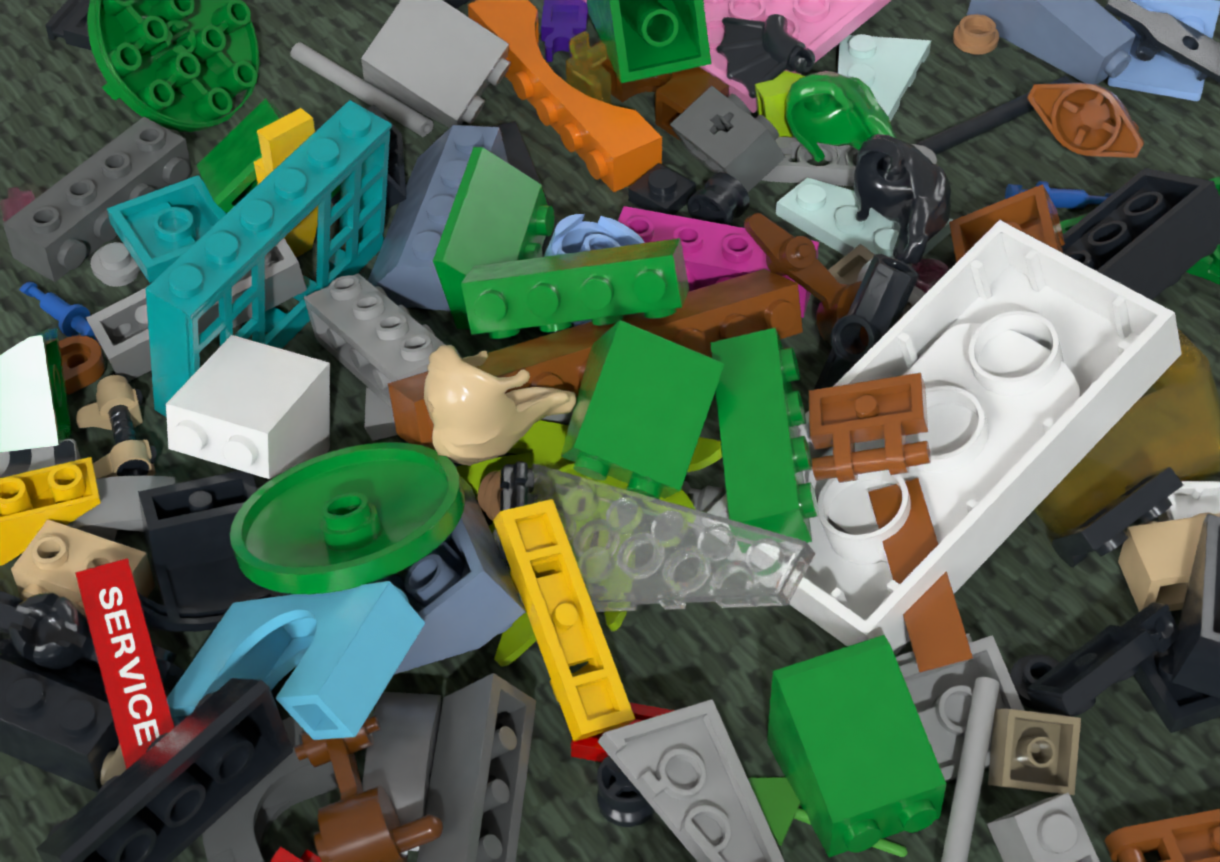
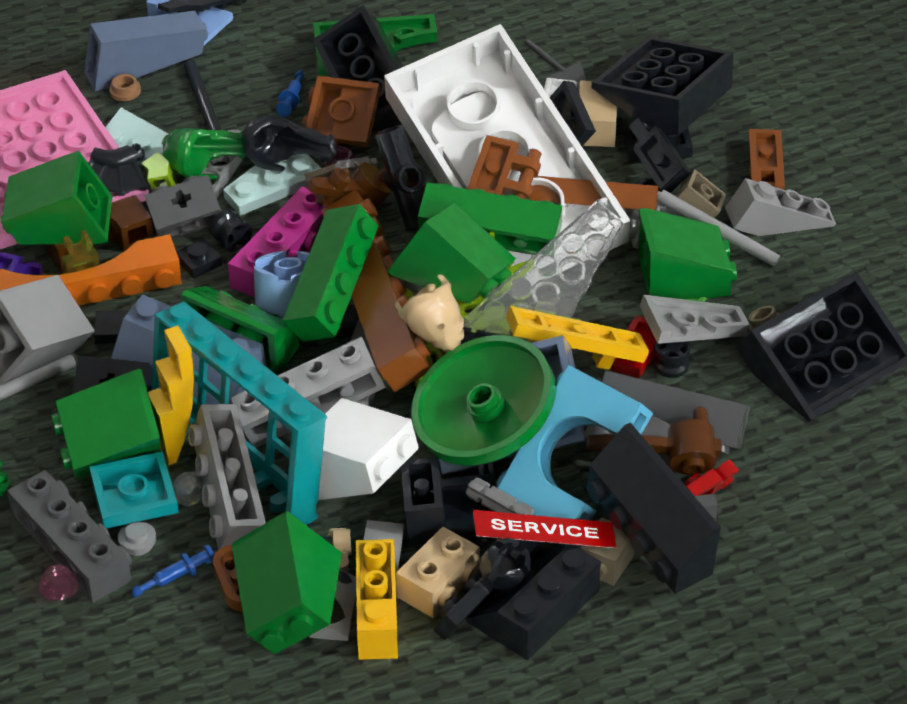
camera: 75 degrees left, 5 degrees down
(211, 612) = (495, 498): none -> light grey axle
(1087, 119) = (241, 57): dark orange hat -> none

